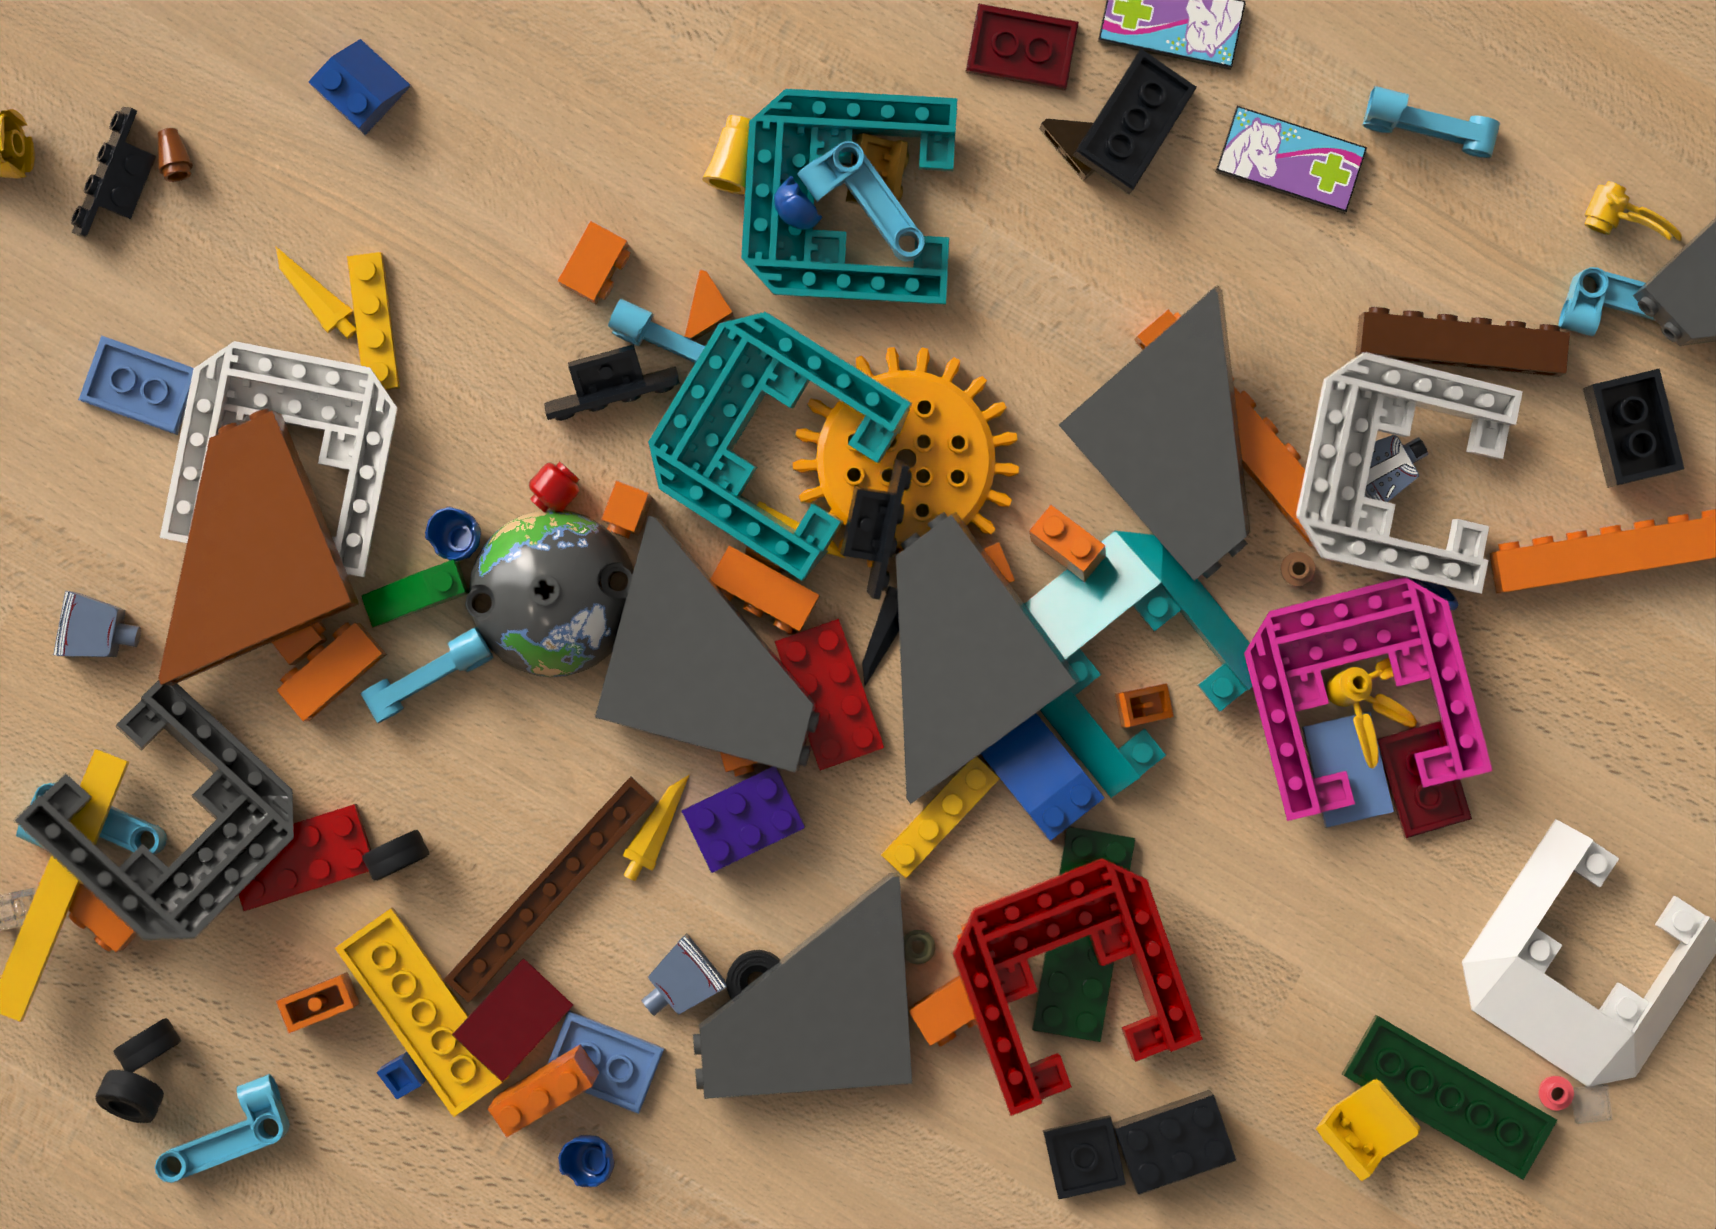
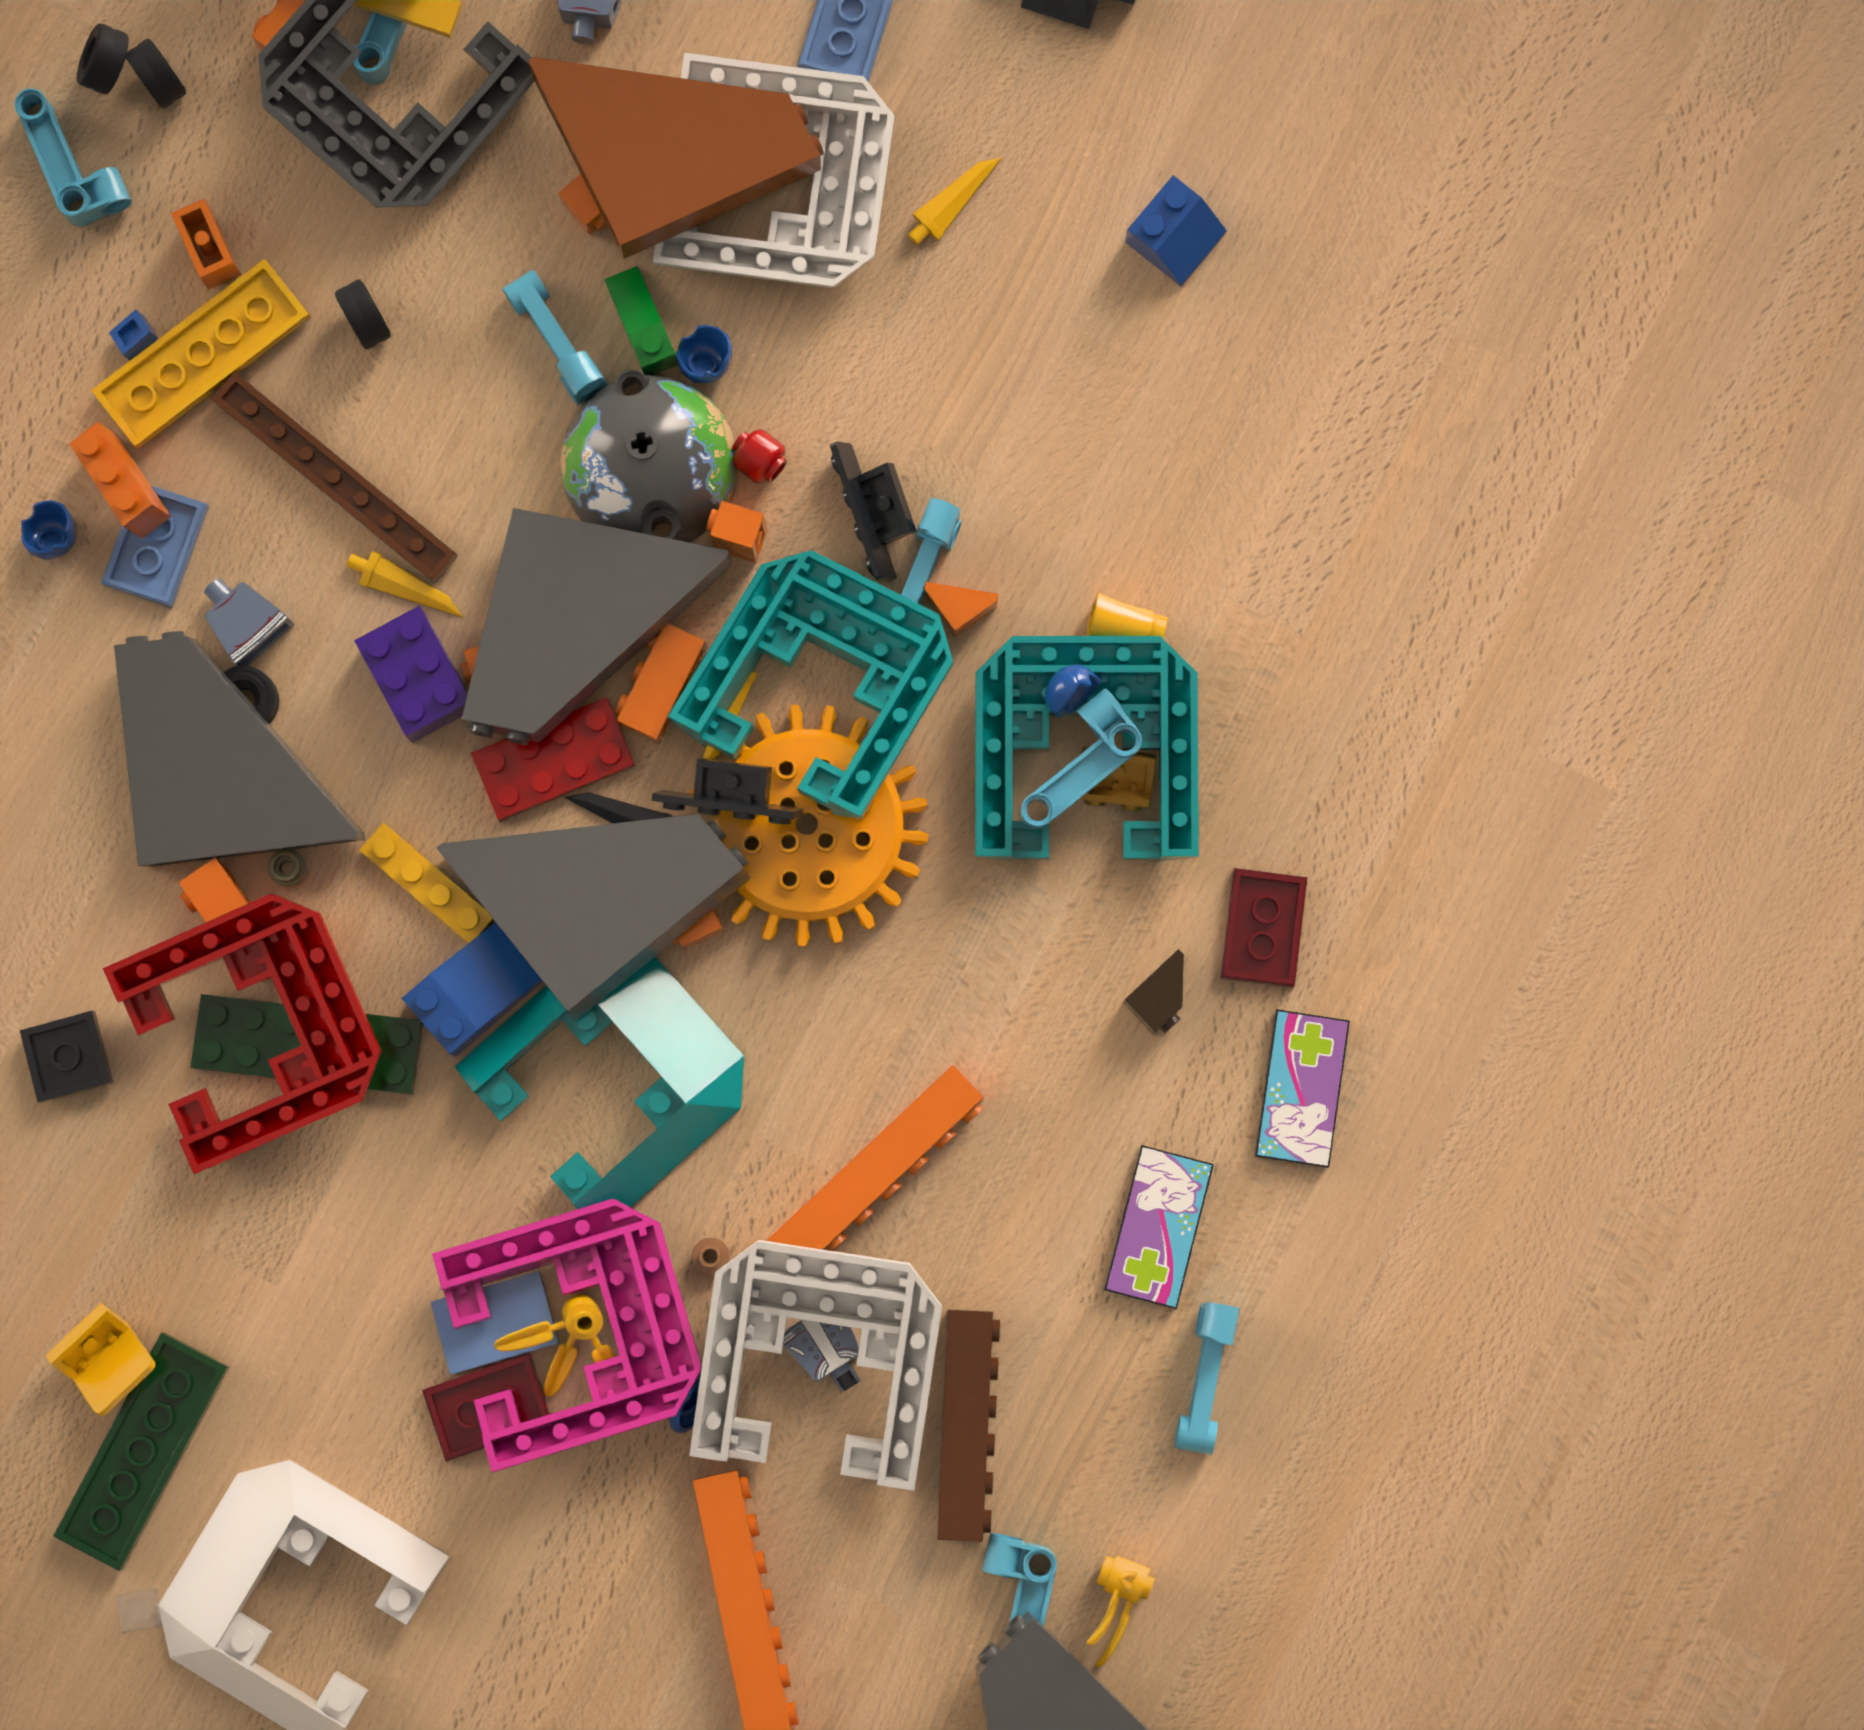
camera: 90 degrees right, 5 degrees down
(173, 157) = (1089, 45): dark orange cone -> none
(320, 854) = (363, 238): red plate -> none
(330, 670) = (555, 237): orange brick -> none
(373, 317) = (929, 261): yellow plate -> none
(512, 1020) = (194, 445): dark red tile -> none
(594, 263) = (1000, 485): orange brick -> none
(1067, 543) = (724, 1002): orange brick -> none
(1134, 121) = (1187, 1050): black tile -> none
(1144, 705) = (554, 1095): orange slope -> none
(1172, 439) = (840, 1109): dark grey slope -> none
(1174, 1142) = (84, 1151): black brick -> none
(1546, 1088) = (161, 1569): coral plate -> none
(1633, 428) = (880, 1619): black brick -> none

